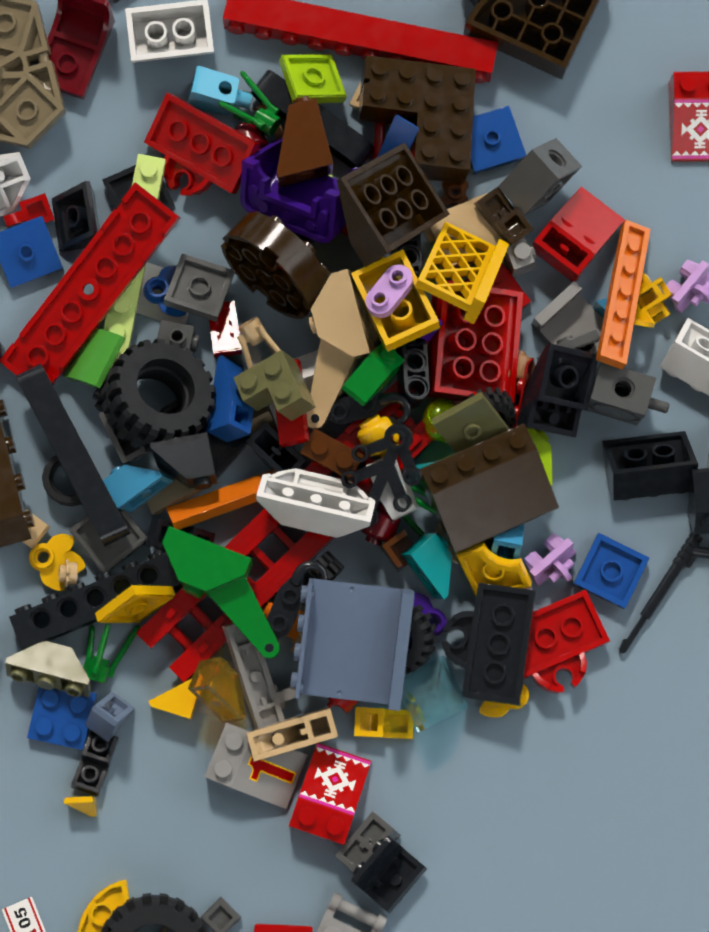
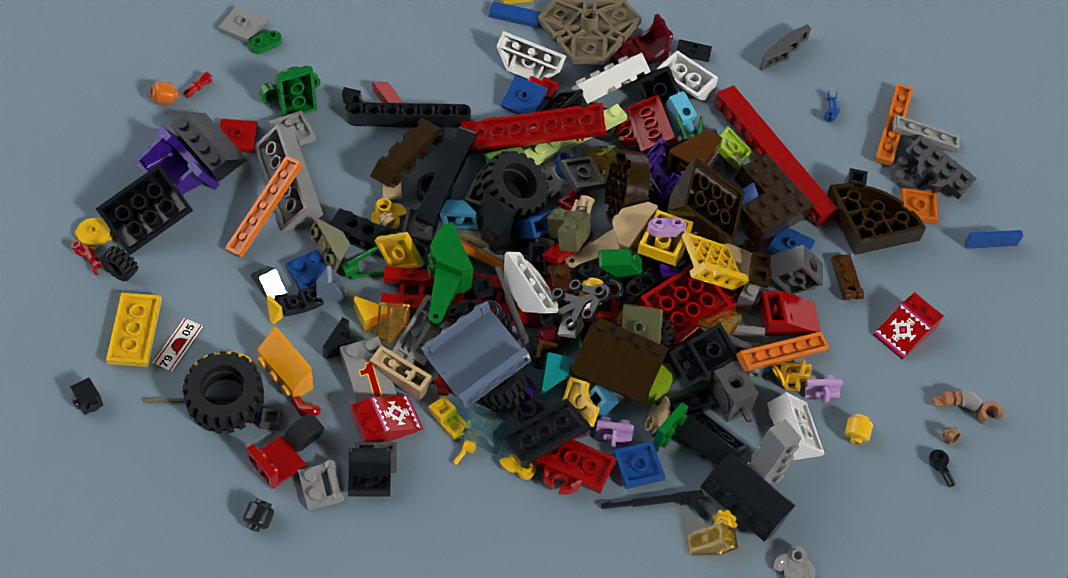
camera: 45 degrees right, 25 degrees down
(37, 778) = (269, 282): none -> slope
(94, 126) = (612, 77): none -> white wedge
(151, 77) = (658, 82): none -> black slope
(172, 855) = (285, 365): none -> light orange slope
(187, 770) = (337, 339): none -> black slope
(196, 239) = (602, 156): none -> clear yellow slope
(243, 871) = (304, 409): none -> red arm
(263, 551) = (482, 288): none -> black tile
(275, 900) = (304, 432): none -> black tyre
(362, 558) = (523, 339): none -> dark grey piece
(437, 732) = (469, 447): none -> yellow hand
(535, 327) = (728, 319): none -> clear yellow slope
(577, 499) = (657, 416): none -> tan plate
(581, 452) = (696, 401): none -> black tile
(582, 117) = (847, 277): none -> reddish brown plate
(605, 512) = (670, 427): none -> green plate

